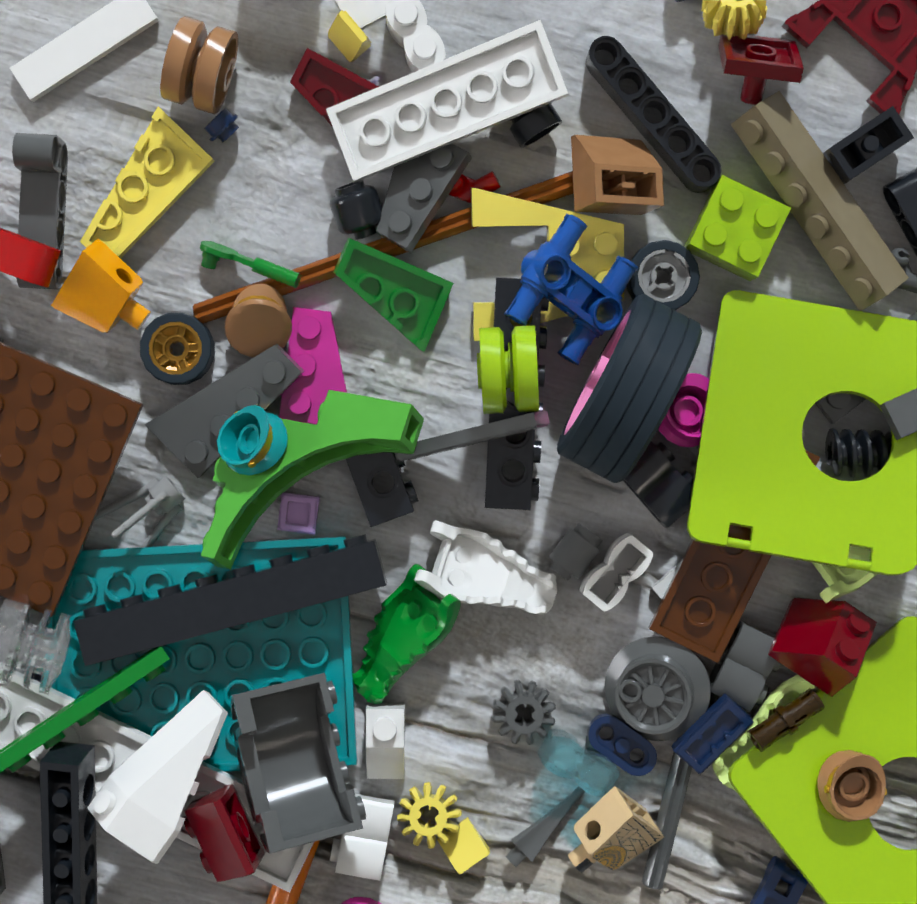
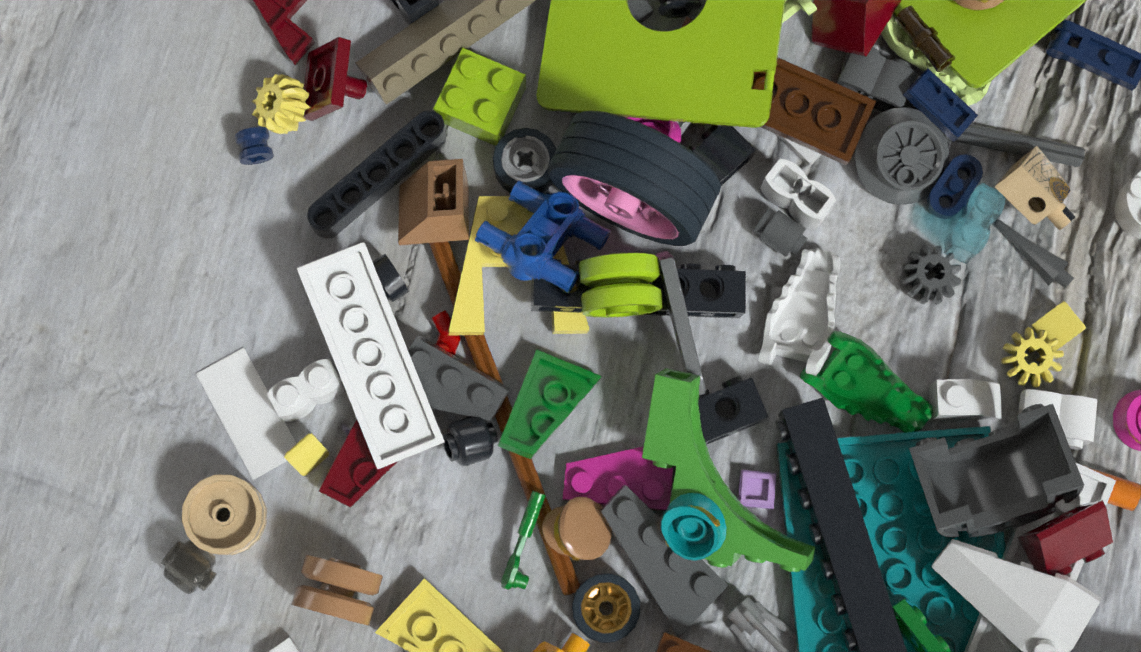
camera: 90 degrees left, 10 degrees down
(222, 125) = (392, 571): dark blue plate -> none

